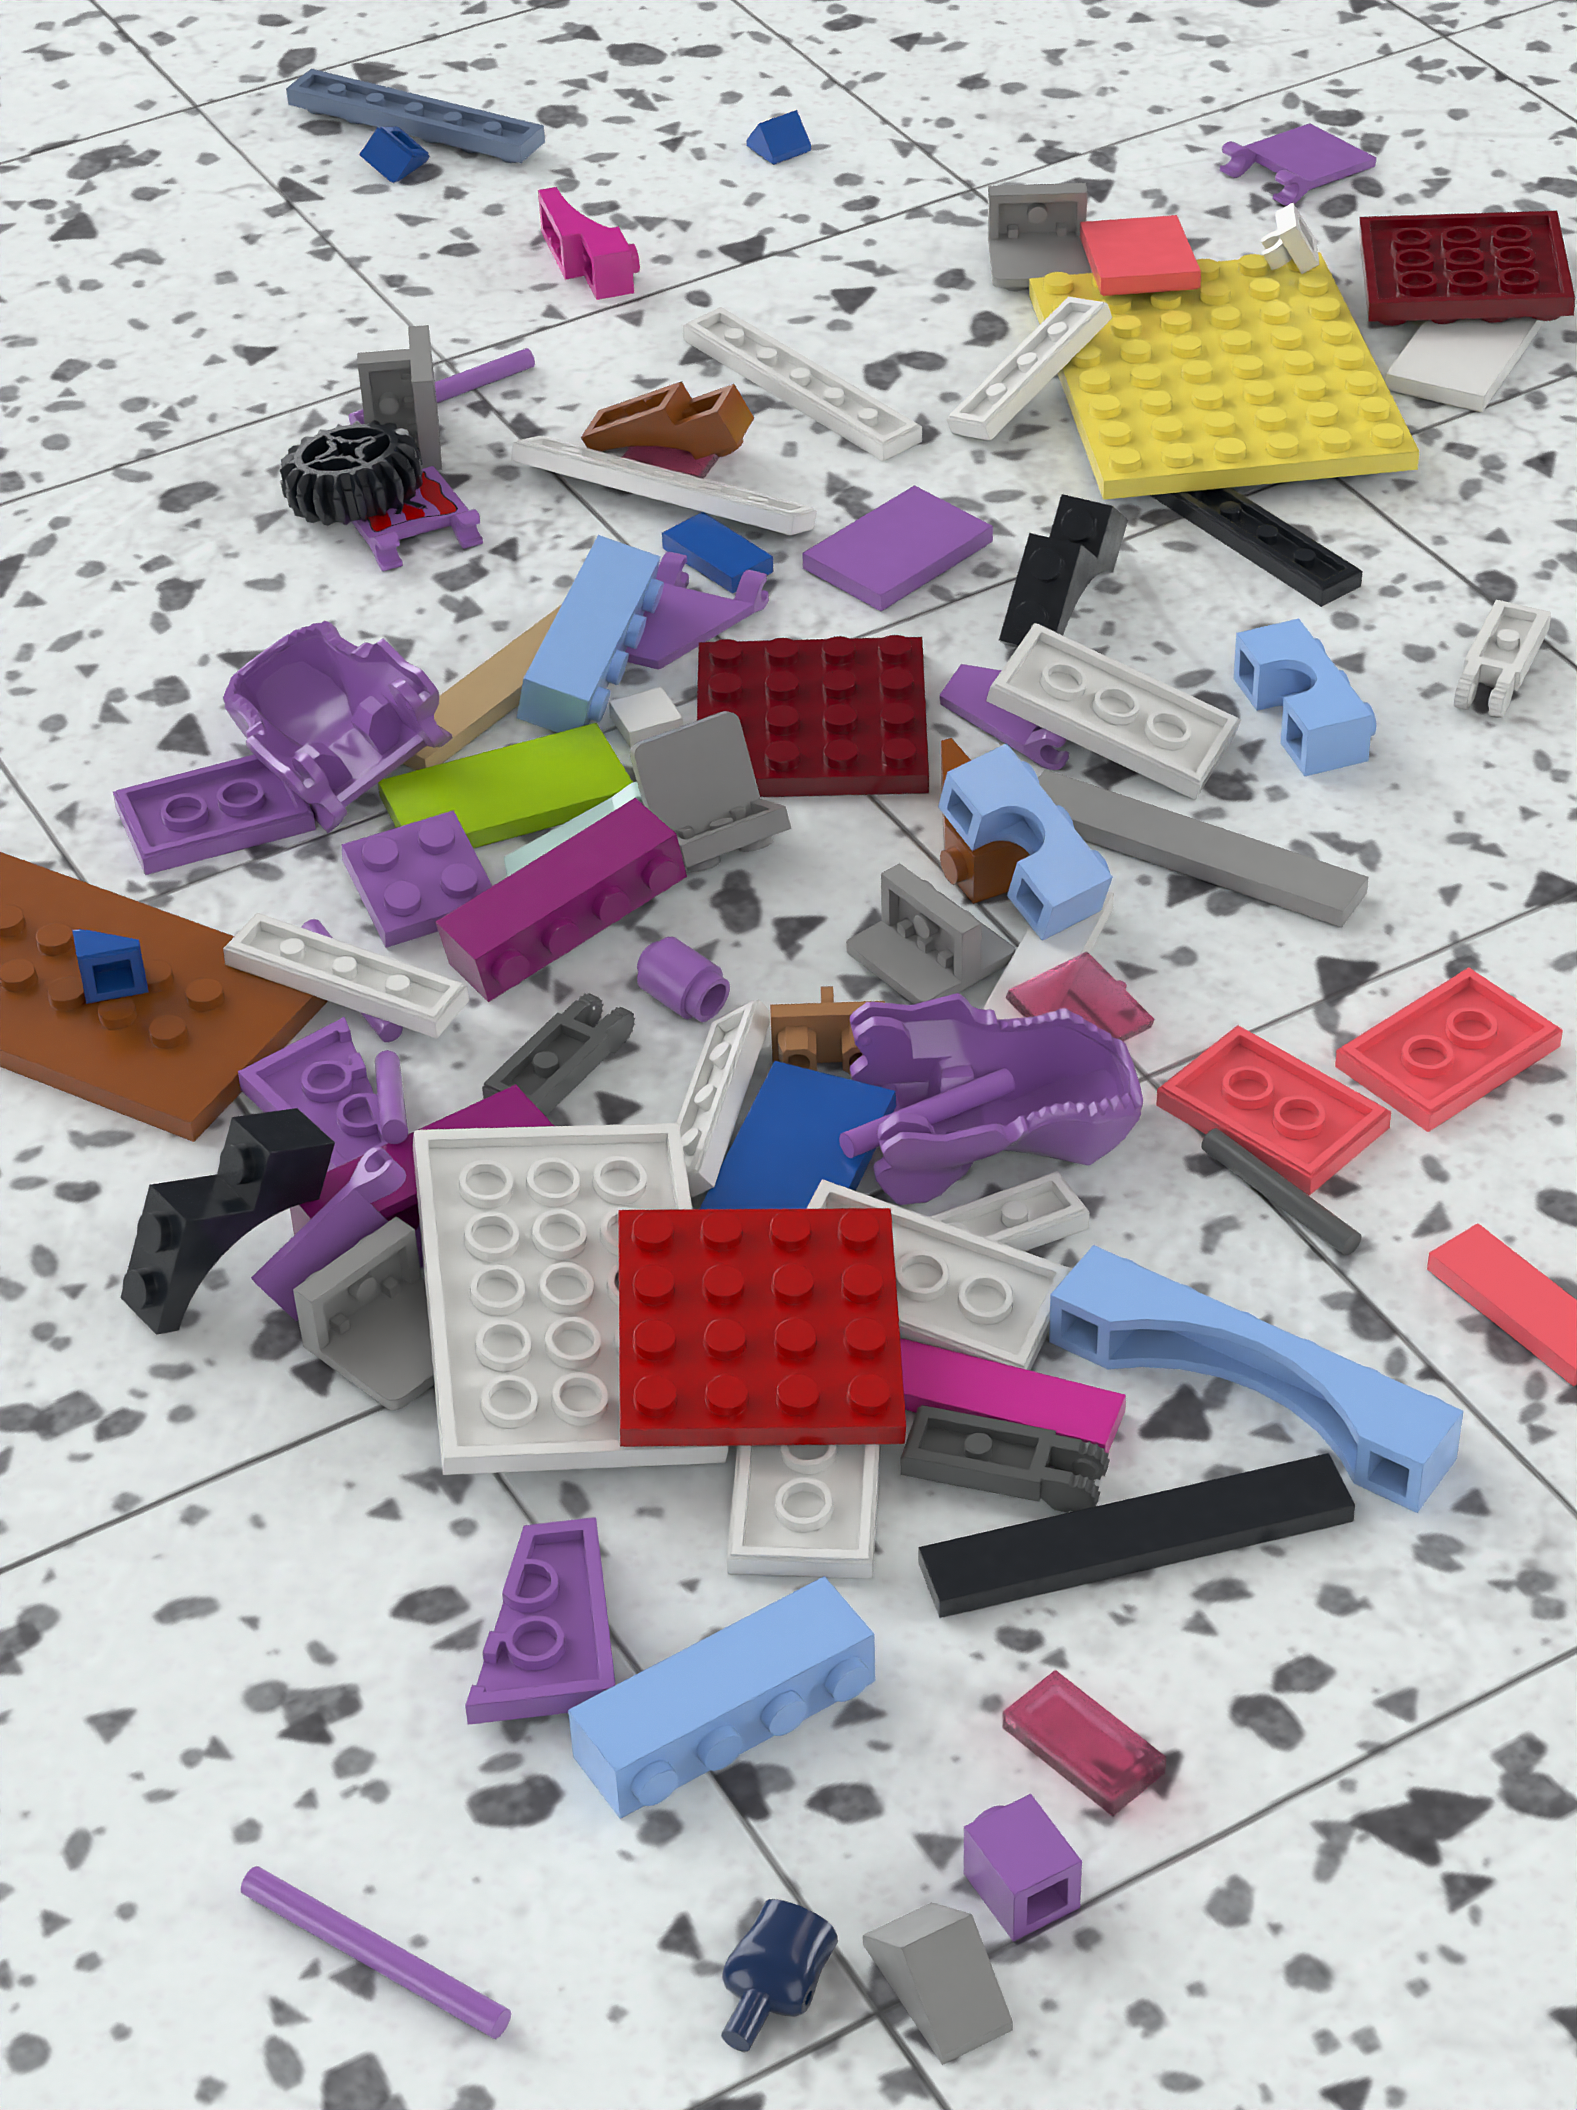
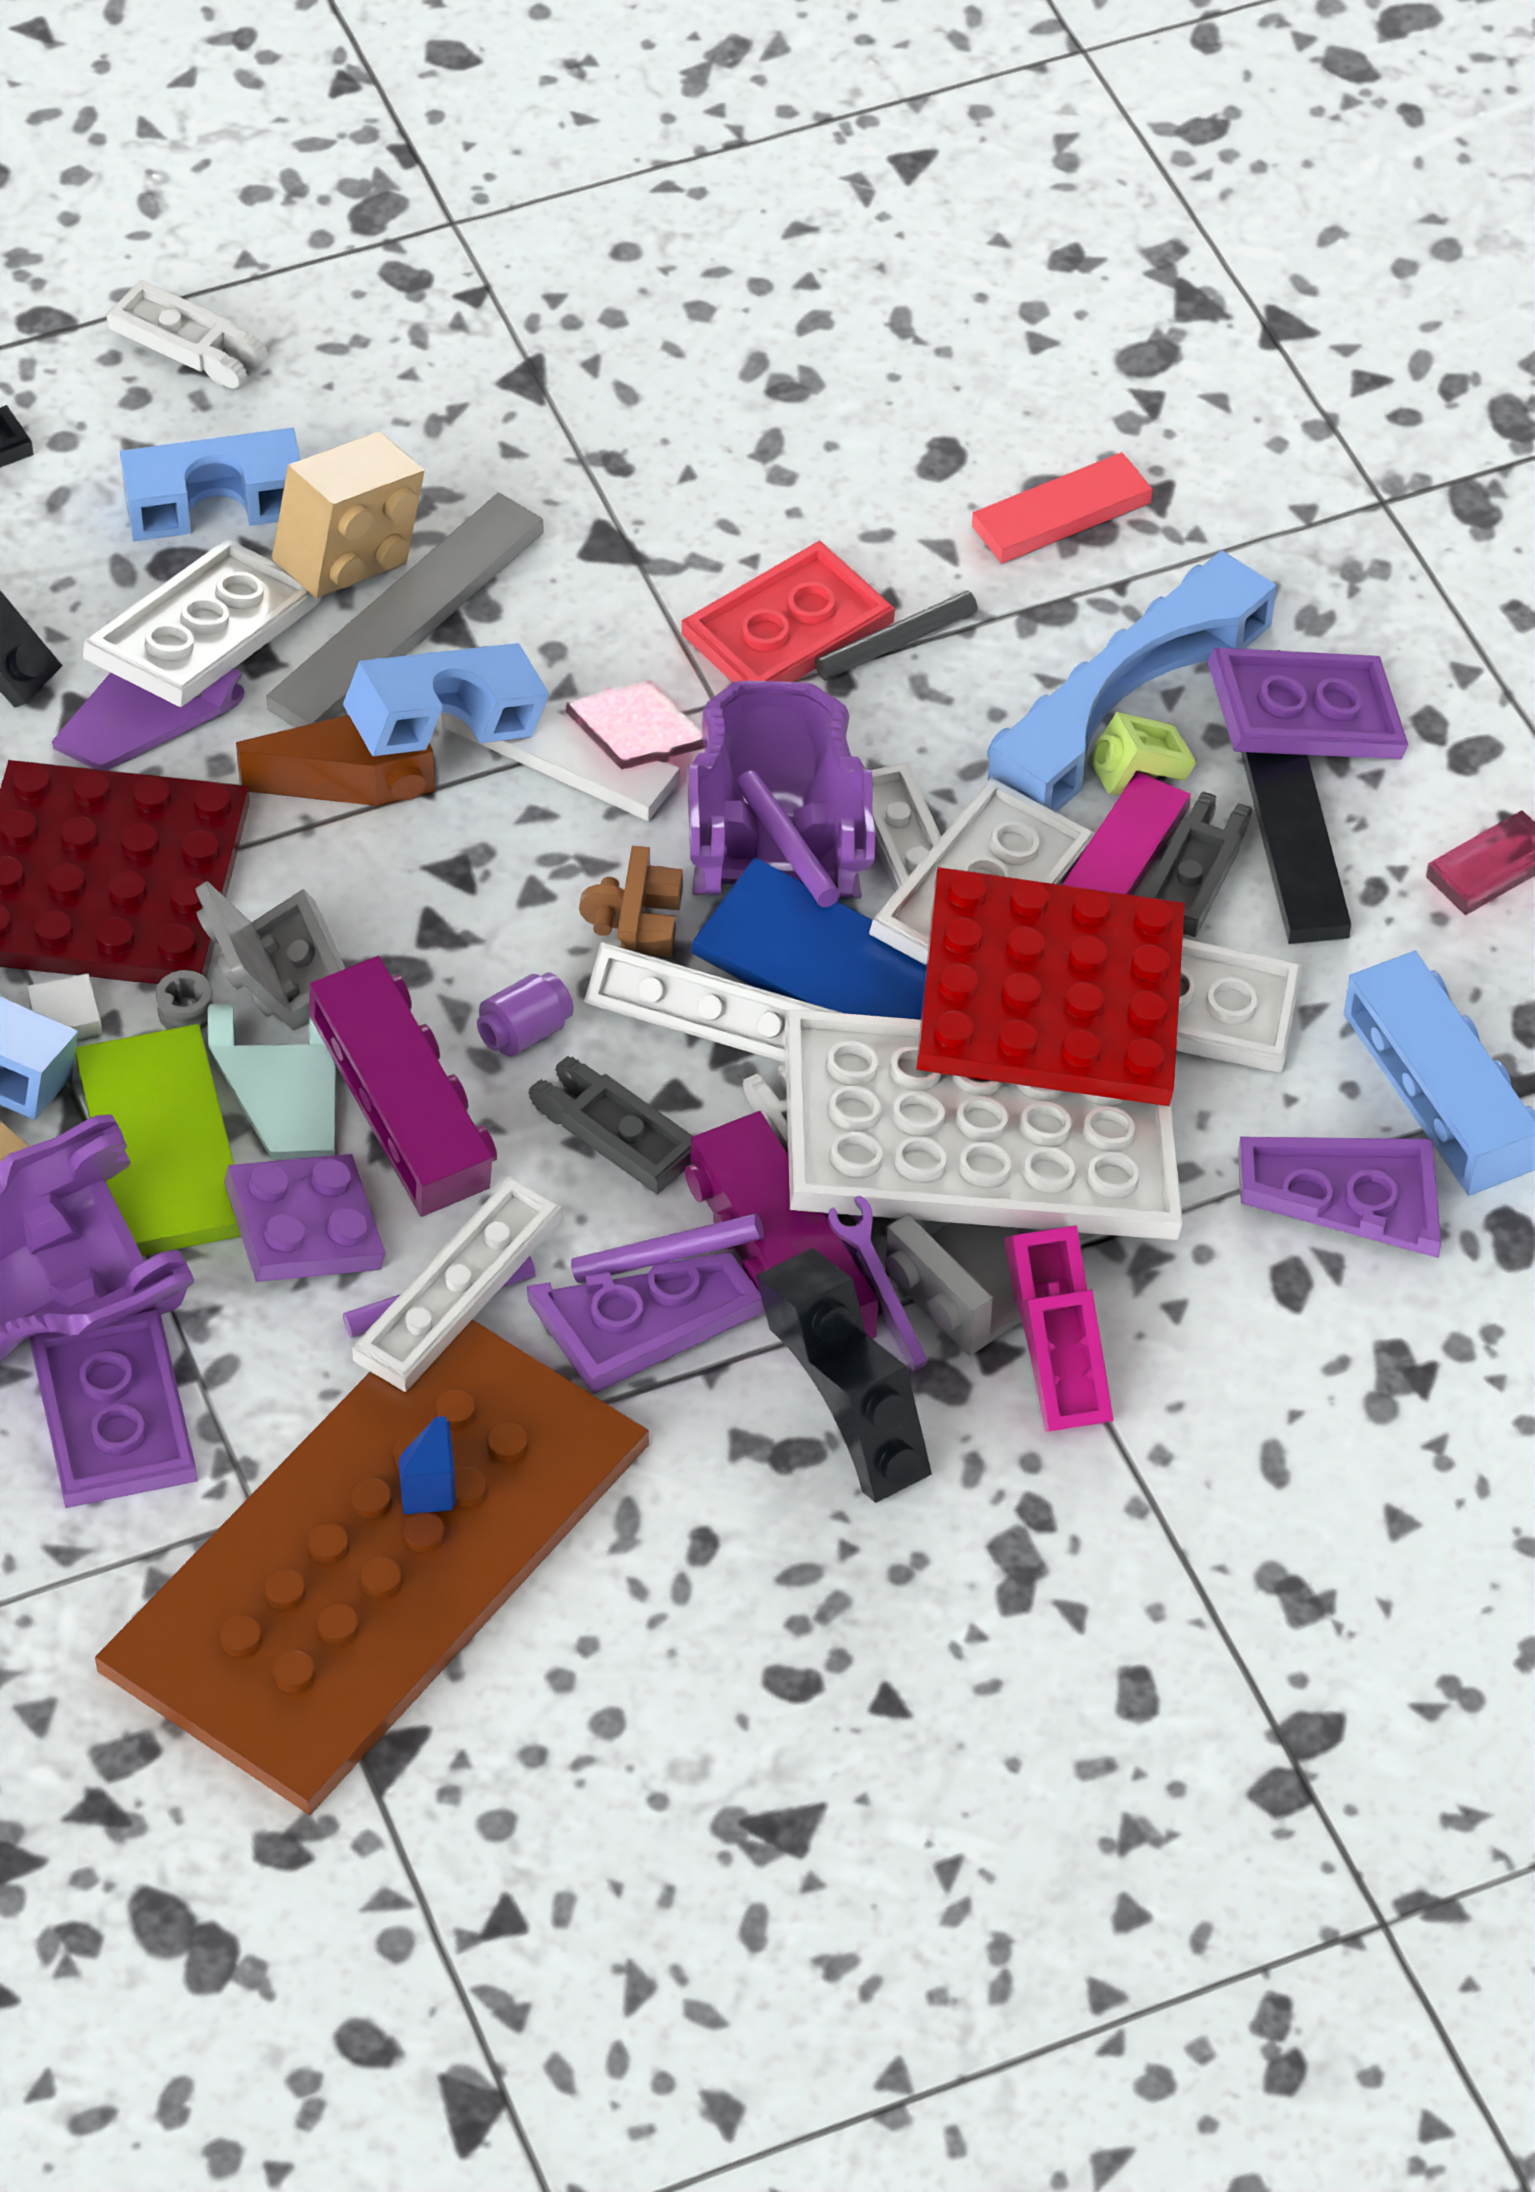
camera: 85 degrees left, 10 degrees up
(316, 1378) = (1059, 1327): none -> dark pink slope
(926, 941) = (520, 820): light grey bracket -> none
(1155, 1393) = (1139, 745): none -> yellowish green bracket
(1257, 754) = (347, 514): none -> tan brick
(1268, 1531) = (1307, 703): none -> medium lavender tile
(1448, 1049) = (735, 491): coral tile -> none

